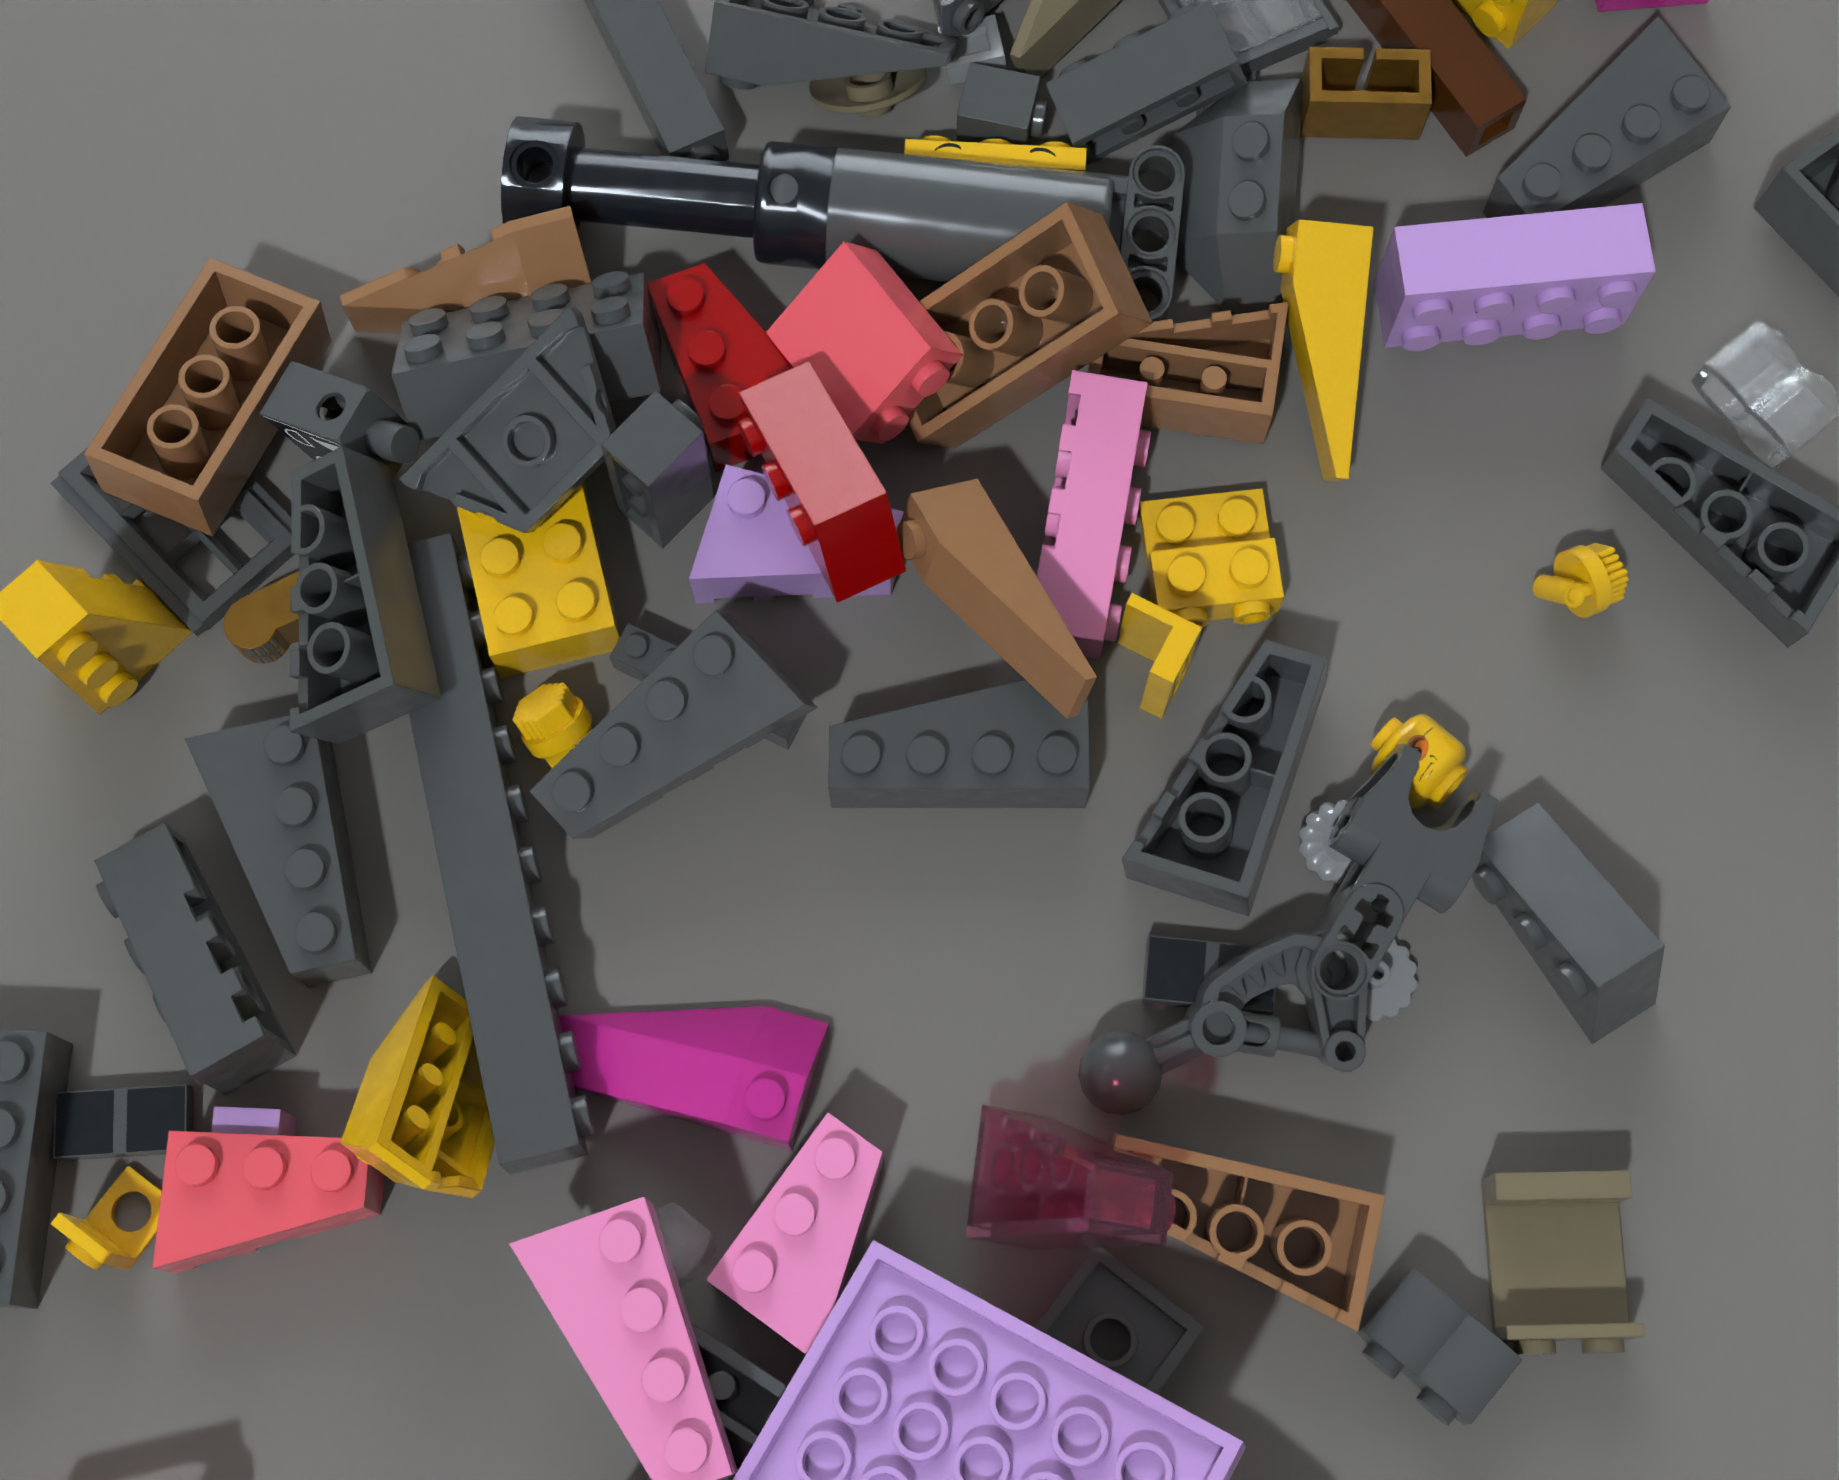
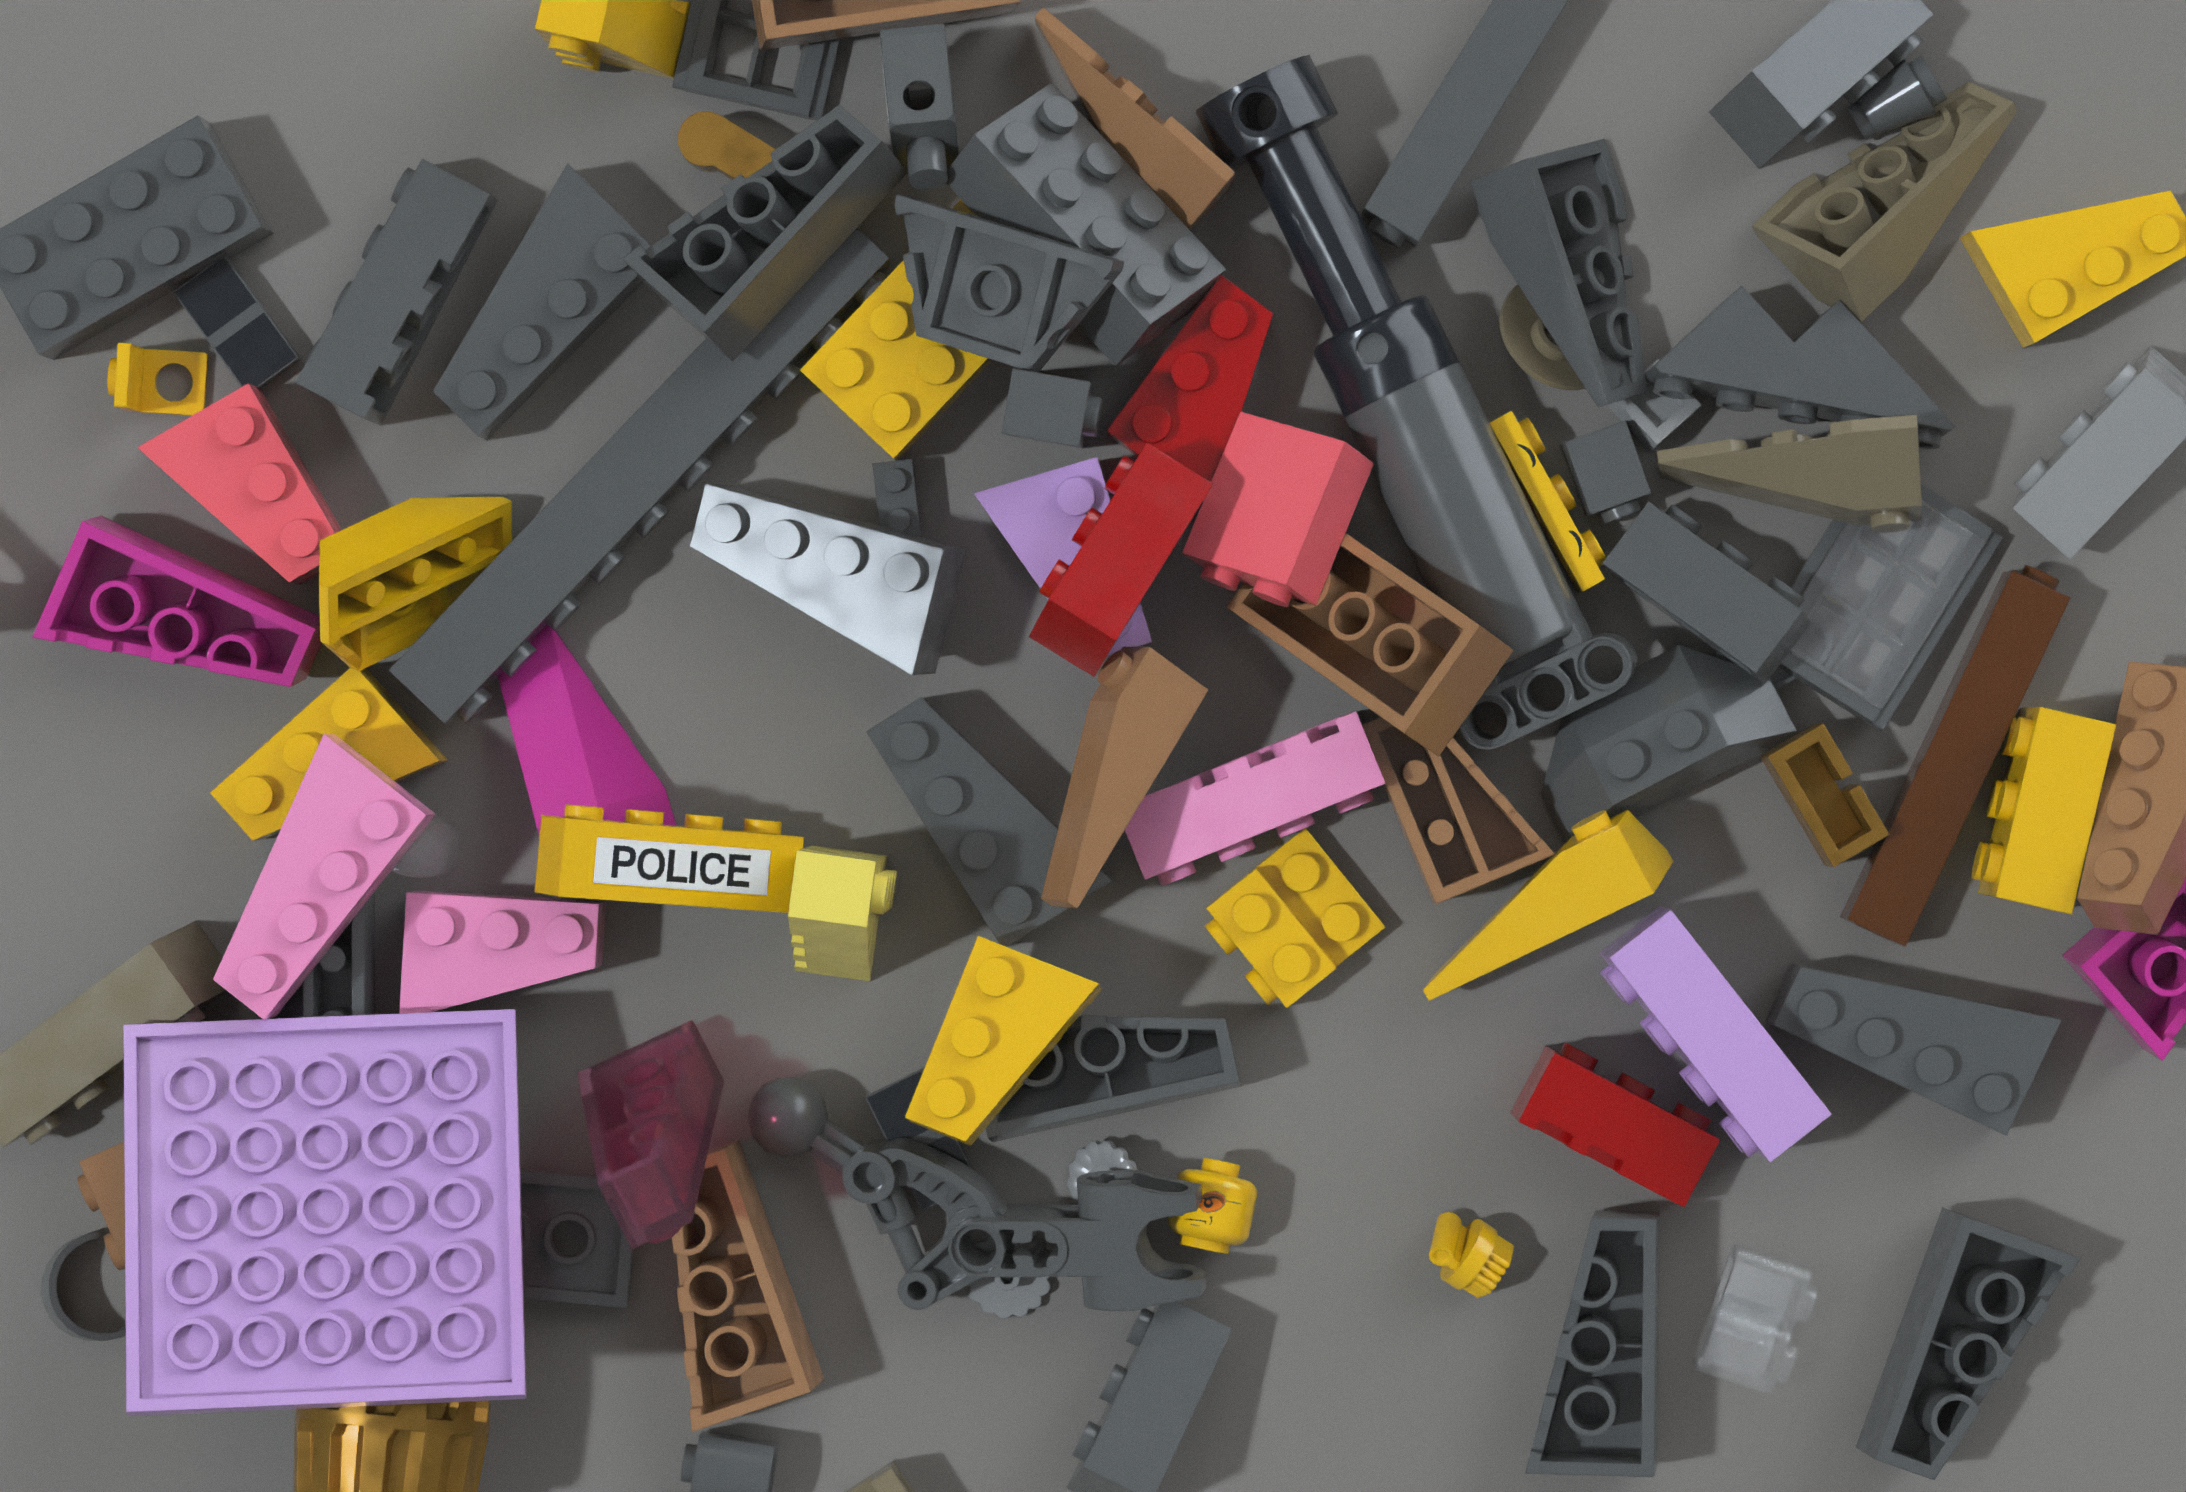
camera: 55 degrees right, 15 degrees up
(253, 1121) = (300, 438): lavender tile -> none
(302, 1347) = (169, 607): none -> dark pink wedge
(527, 1344) = (354, 710): none -> yellow wedge
(552, 721) = (785, 455): yellow piece -> none
(829, 1026) = (665, 862): none -> yellow brick
(965, 895) = (838, 910): none -> light yellow wedge
(1162, 829) = (993, 1036): none -> yellow wedge
(1163, 639) = (1164, 949): yellow panel -> none
(1537, 403) = (1616, 1123): none -> red wedge

